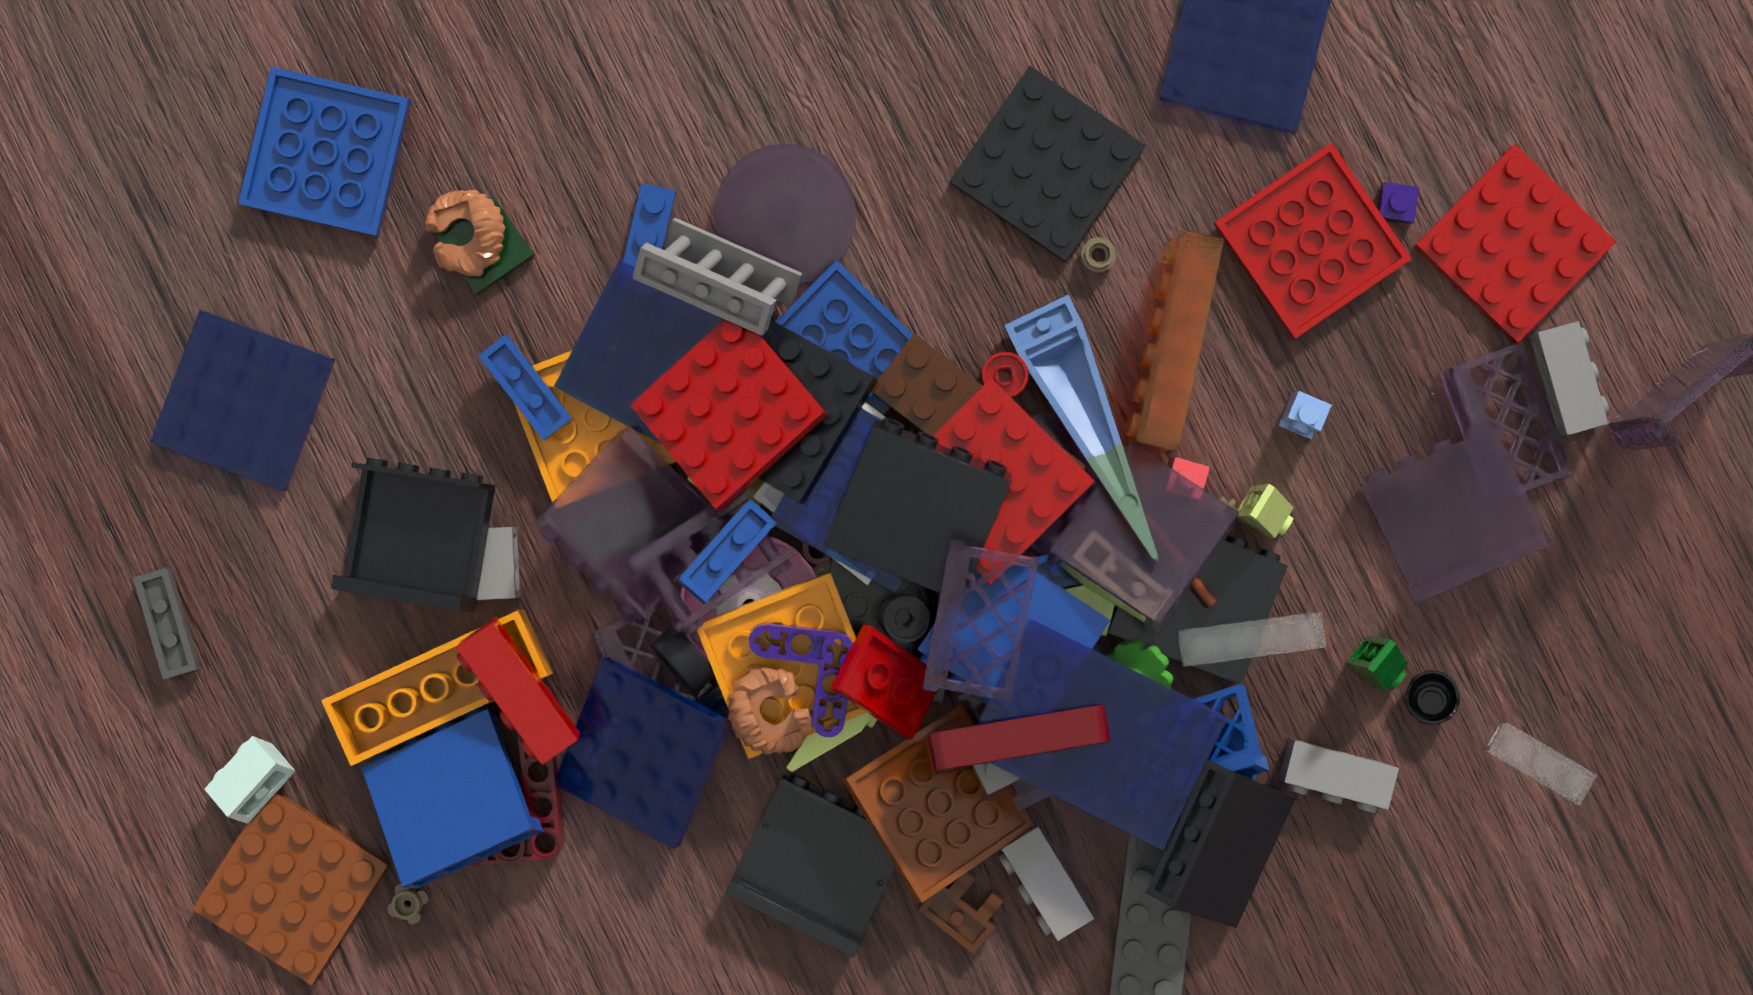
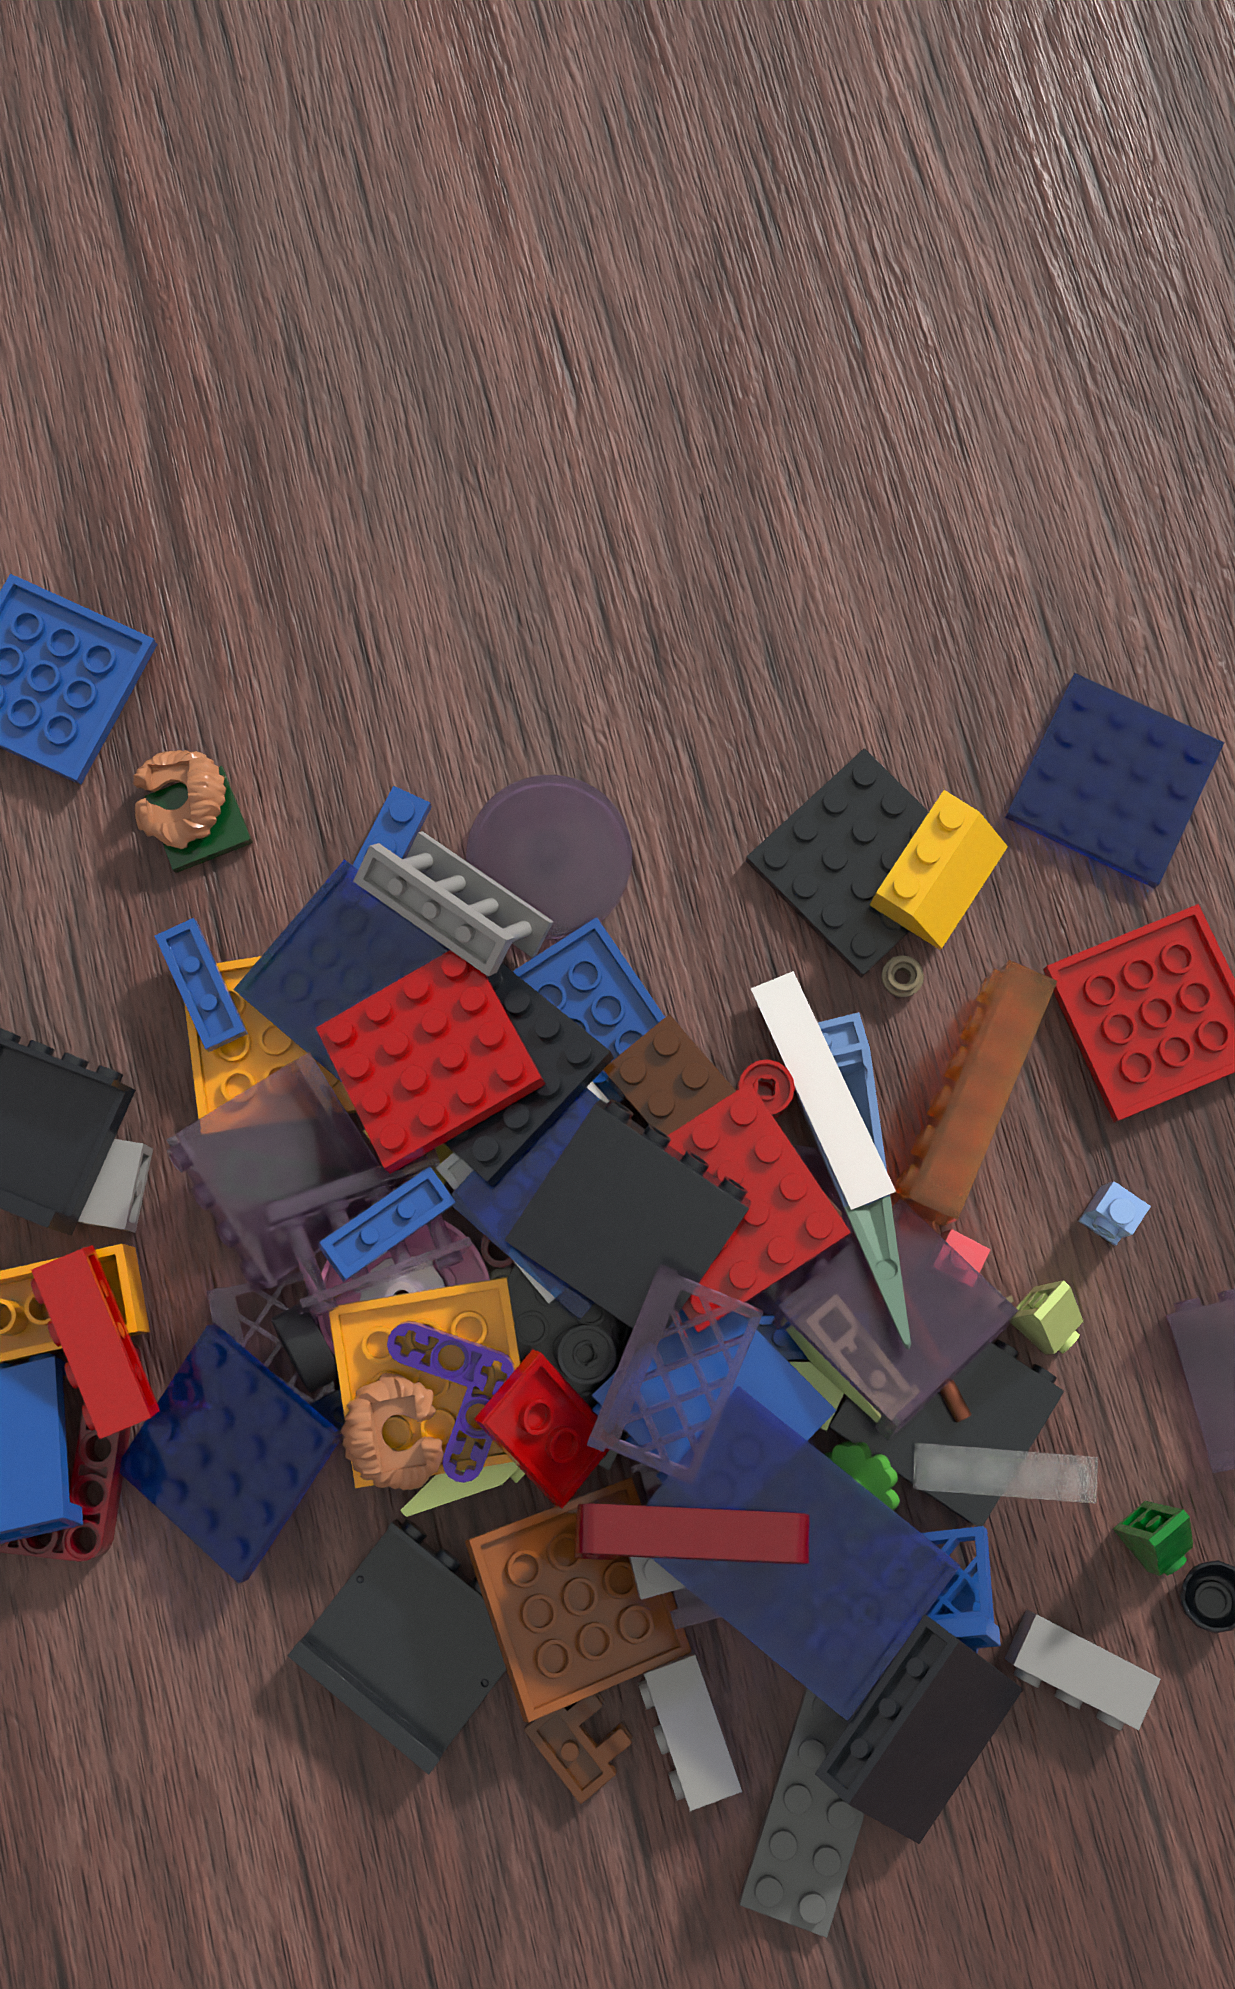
camera: 10 degrees right, 10 degrees down
(1050, 365) = (823, 1091): none -> white sticker
(1113, 162) = (940, 870): none -> yellow slope

